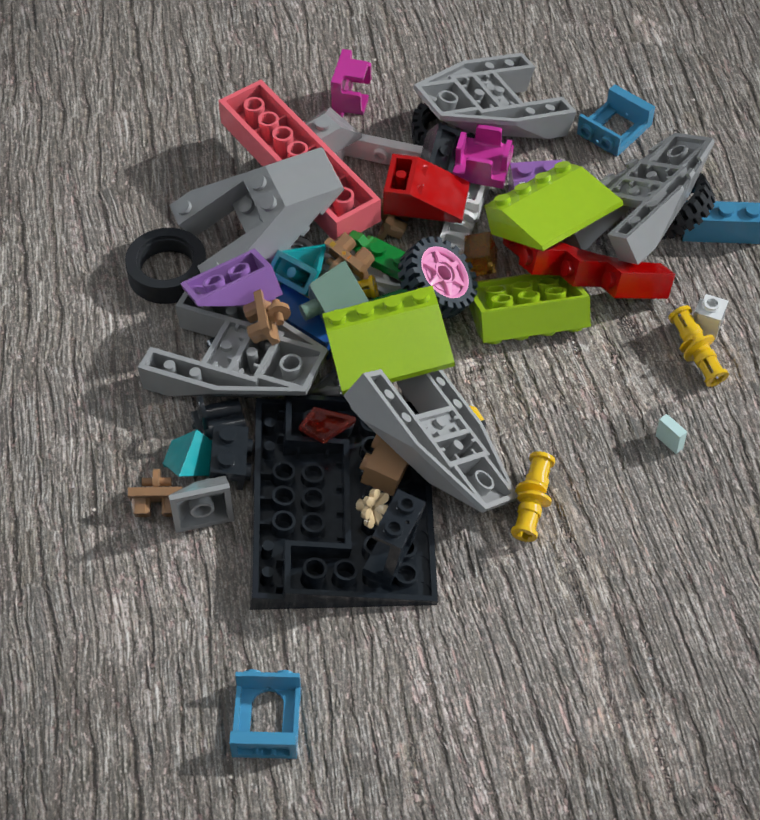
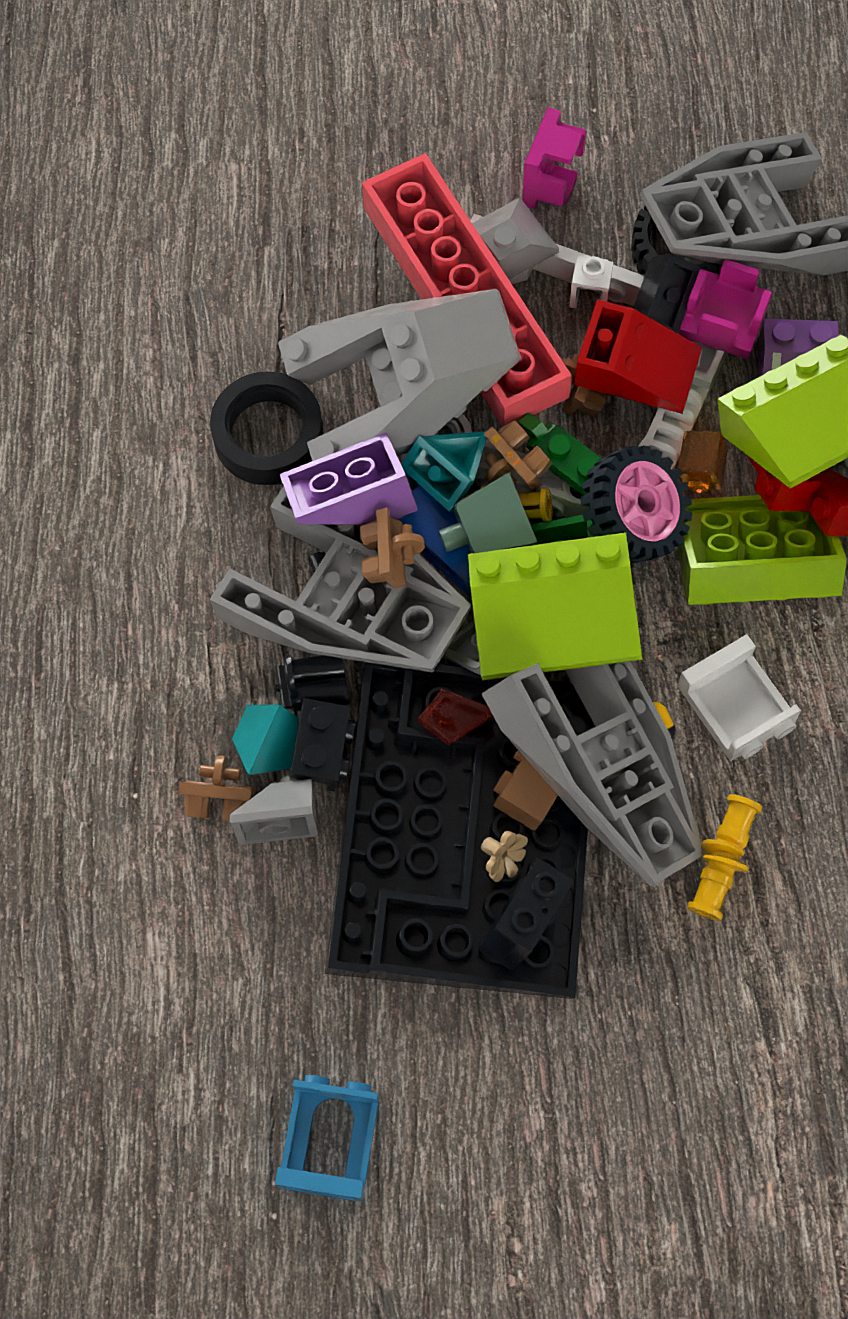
camera: 10 degrees right, 15 degrees up
(385, 143) = (591, 274): none -> white window
(526, 398) = (737, 700): none -> white panel

